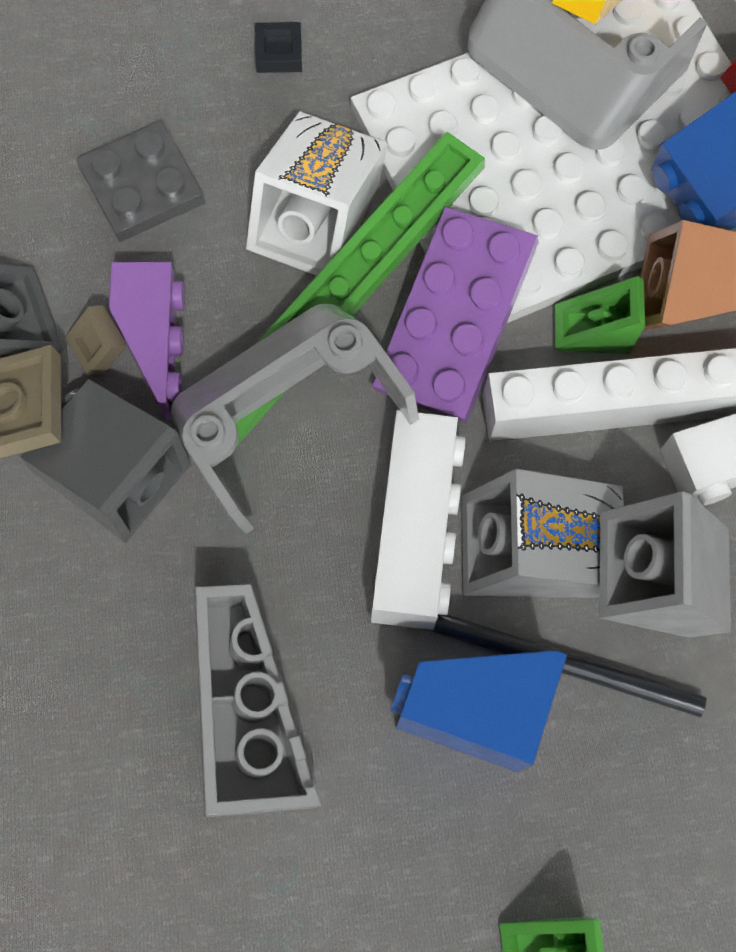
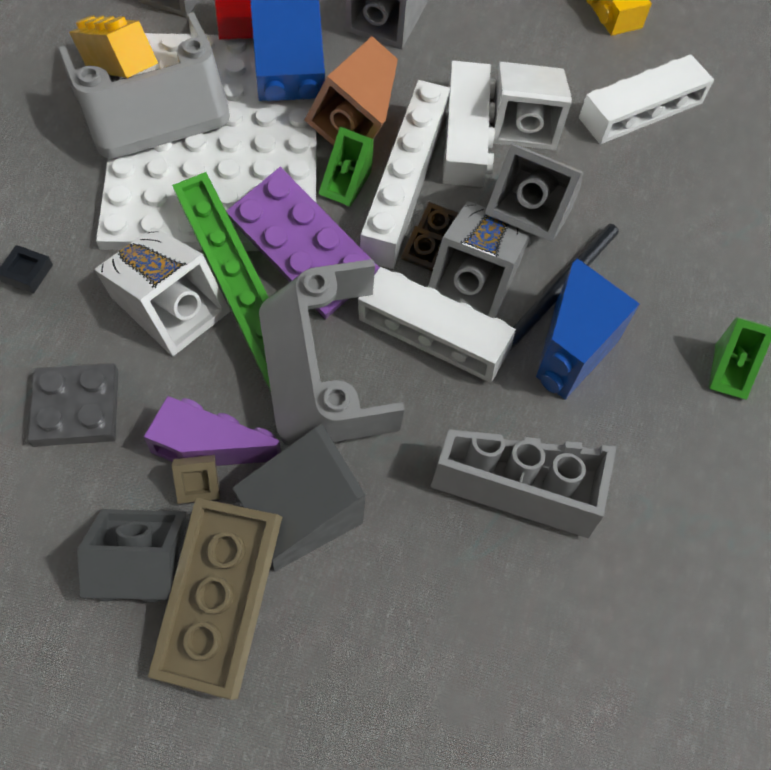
camera: 70 degrees left, 10 degrees down
(570, 460) = (427, 237): none -> dark brown slope

